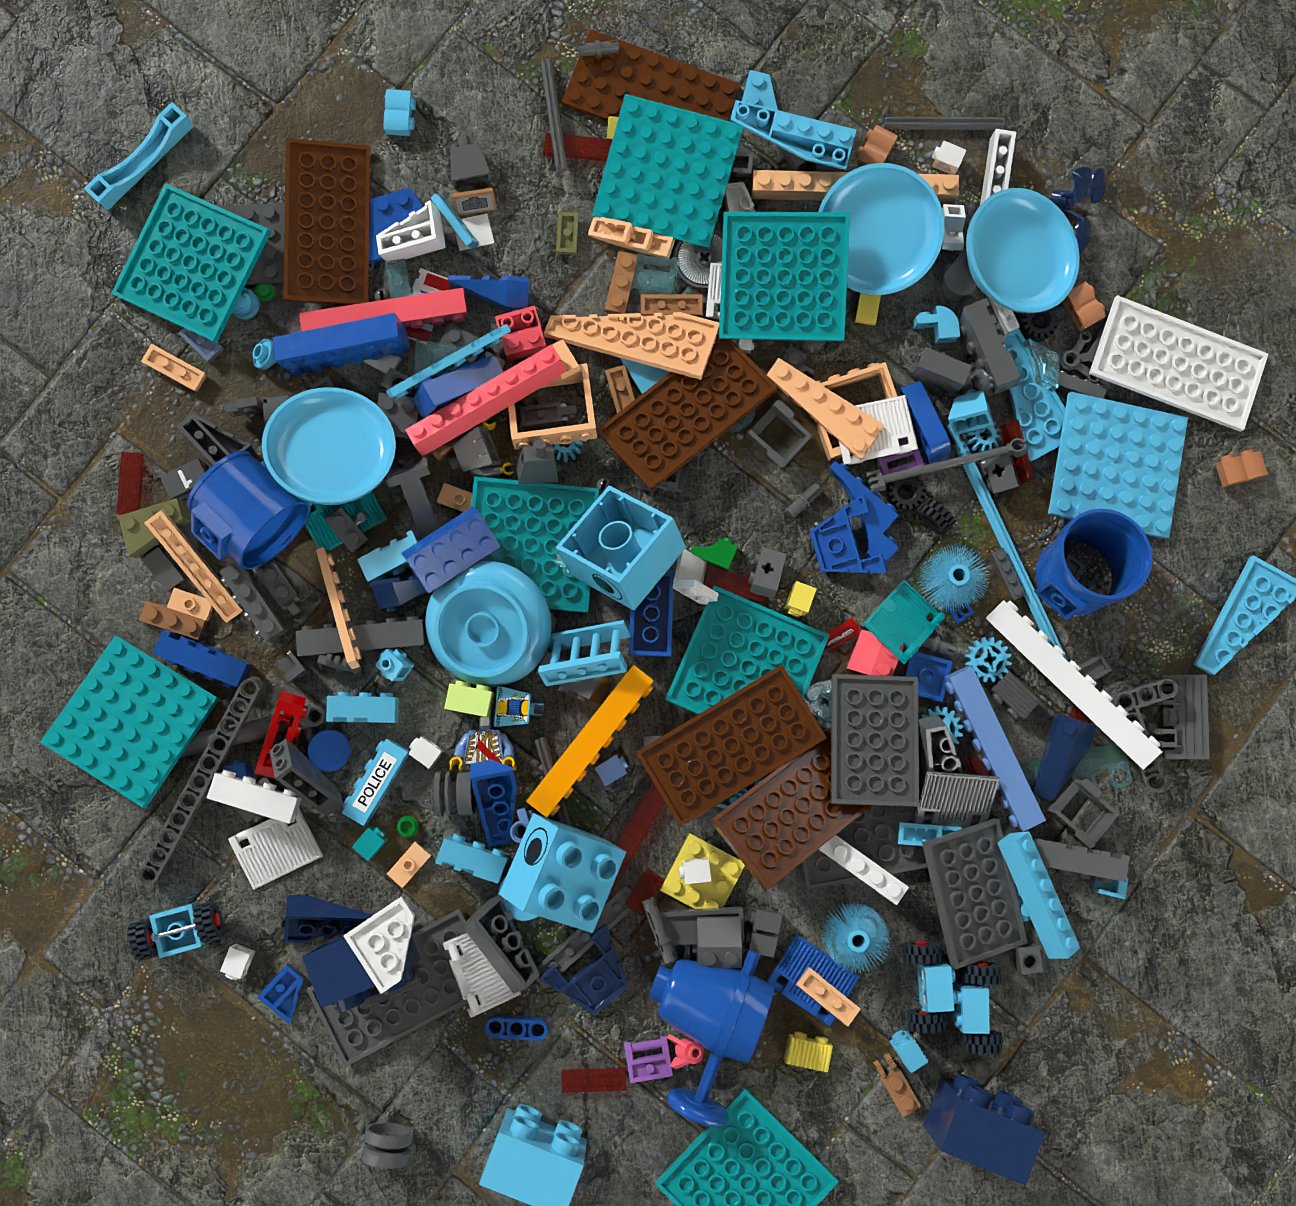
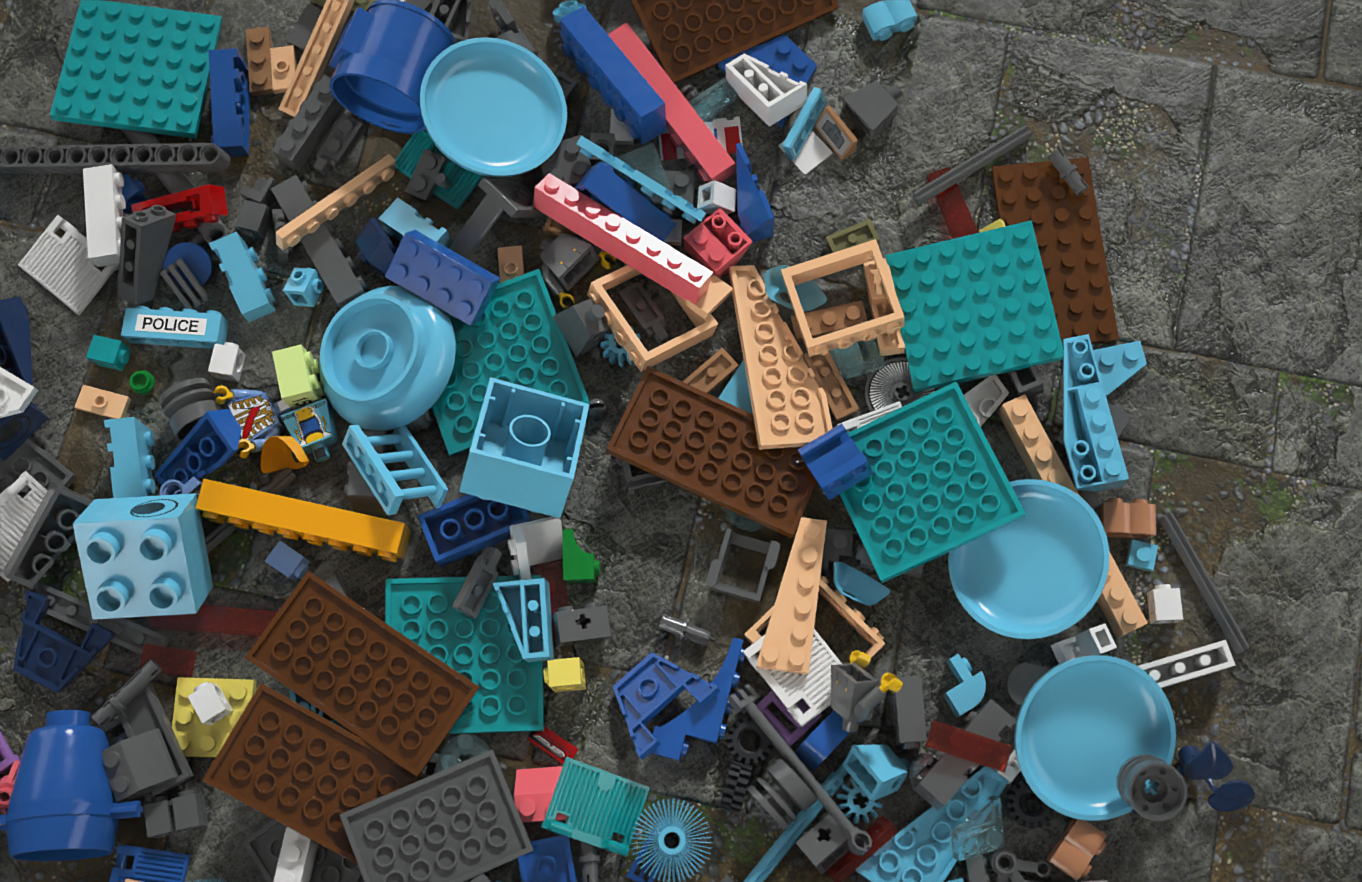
camera: 75 degrees right, 10 degrees down
(315, 682) = (254, 220): none -> dark grey brick
(362, 756) = (177, 290): none -> dark grey tile
(483, 316) = (715, 196): none -> white brick
(523, 741) = (278, 454): none -> light orange piece
(584, 290) = (808, 292): none -> medium azure piece
(651, 256) = (830, 264): none -> light nougat window
(701, 631) = (478, 583): none -> dark grey hinge
(740, 328) = (835, 461): none -> blue piece
(746, 605) = (529, 615): none -> medium azure wedge
(832, 360) = (858, 584): none -> medium azure piece
(867, 309) = (939, 598): light yellow tile -> none
(904, 154) = (1141, 555): none -> medium azure plate
(916, 397) = (856, 691): none -> dark grey torso
(956, 486) = (781, 794): none -> dark grey wheel
(989, 339) = (968, 746): none -> clear red tile
(1076, 230) = (1166, 790): none -> dark grey wheel

